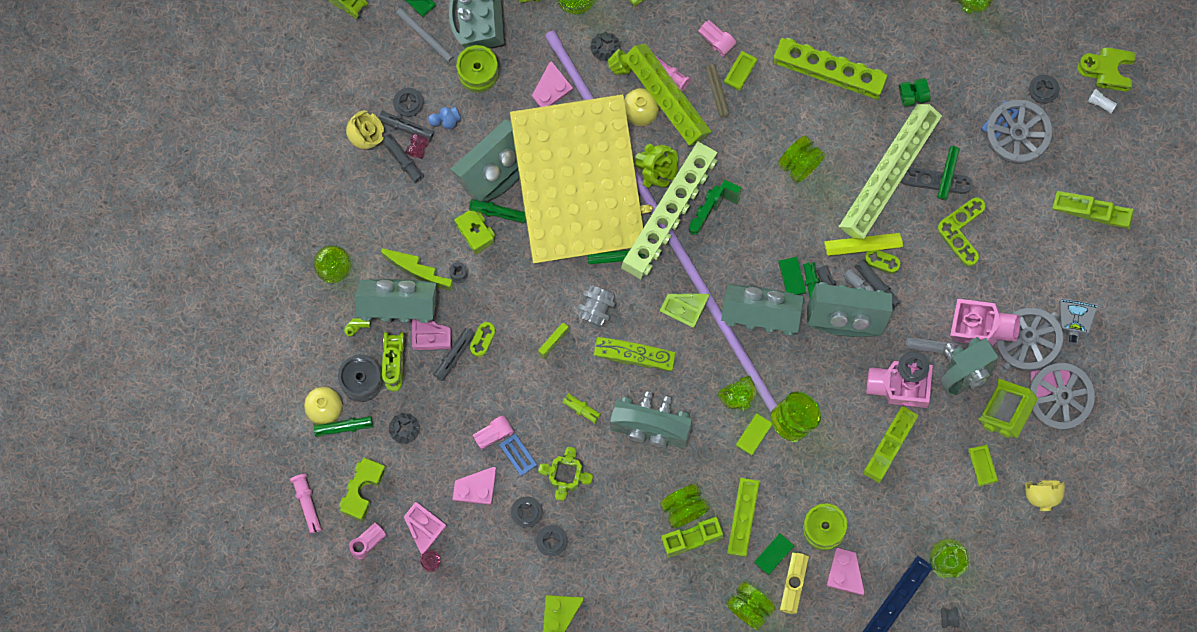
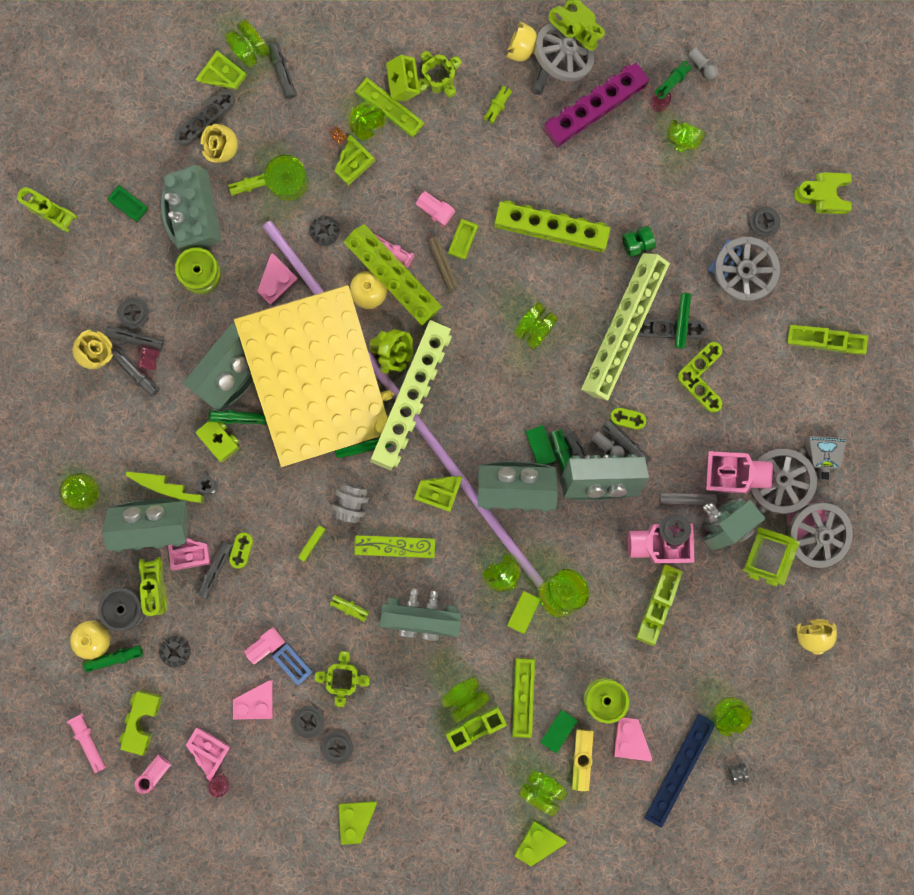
camera: 20 degrees left, 10 degrees up
(354, 325) = (108, 556): lime arm -> none
(427, 37) = (140, 240): light grey bar -> none
(447, 116) = (175, 323): medium blue animal -> none
(618, 64) = (339, 248): lime piece -> none
(703, 212) = (445, 390): green hinge -> none
(727, 191) = (467, 368): green panel -> none
(869, 243) = (599, 406): neon yellow tile -> none
(983, 465) = (751, 613): lime tile -> none
(1098, 99) = (820, 226): white pin -> none

